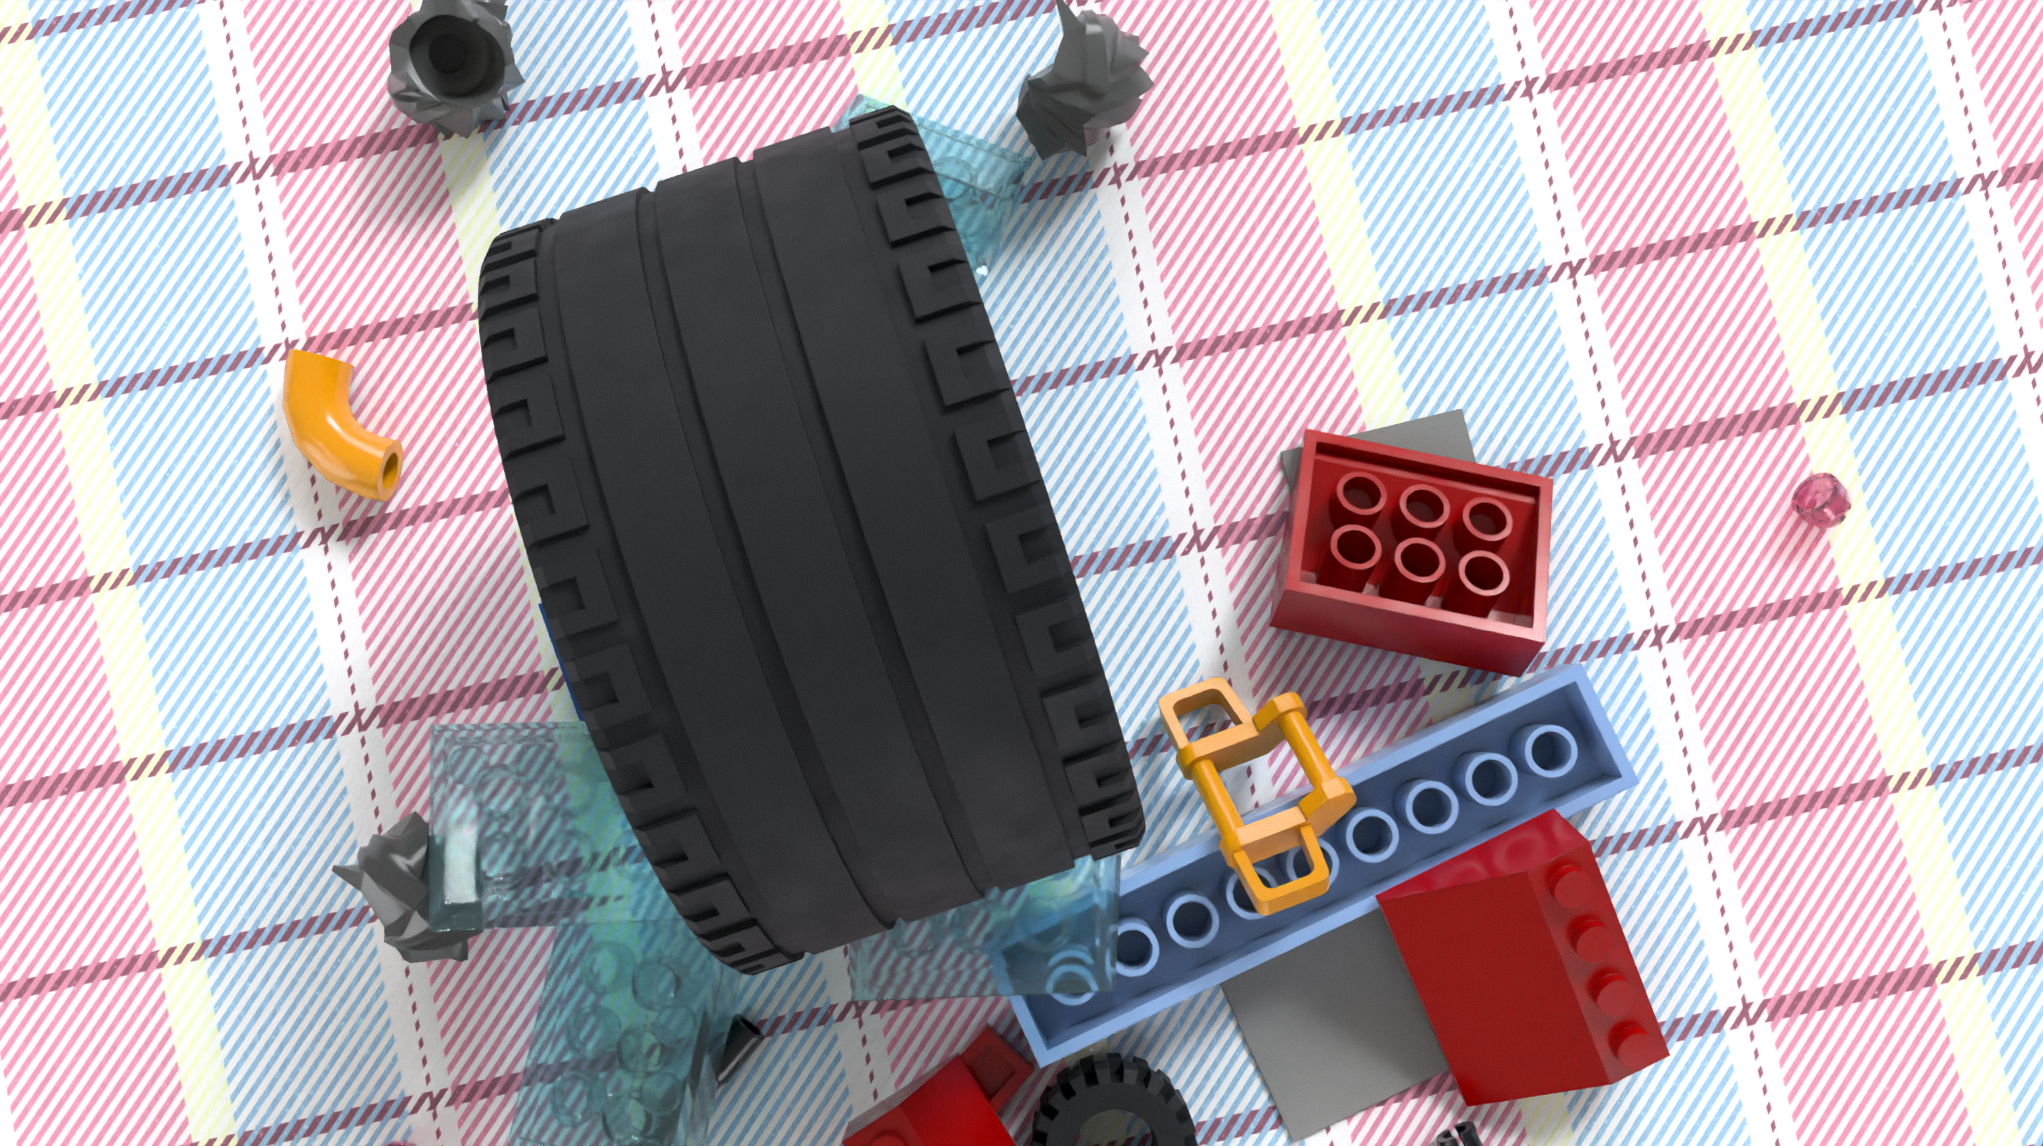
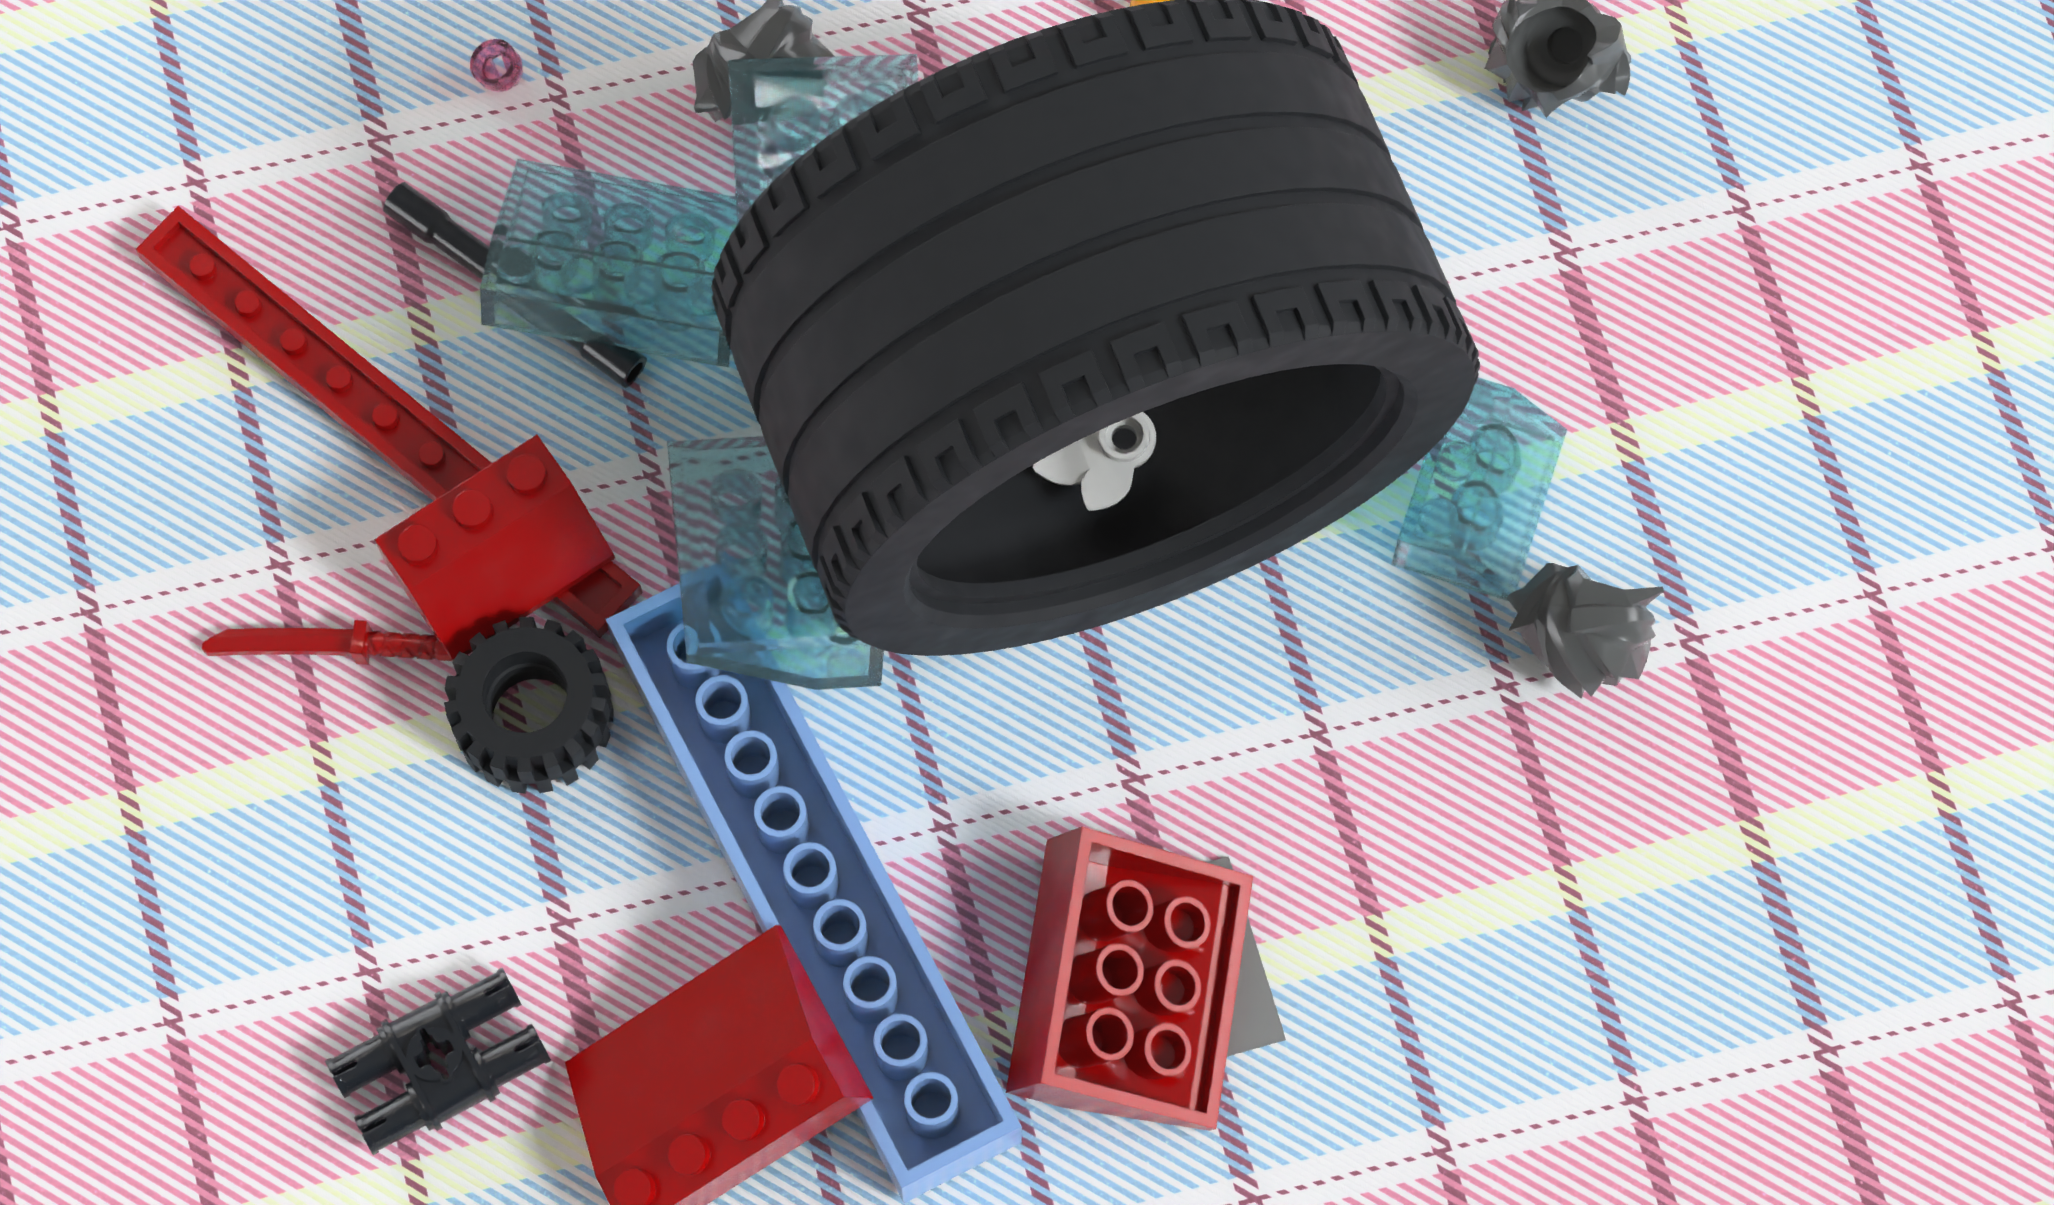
camera: 85 degrees right, 15 degrees down
(1250, 739) = (938, 831): light orange bar -> none
(1335, 1025) = (644, 920): light grey piece -> none

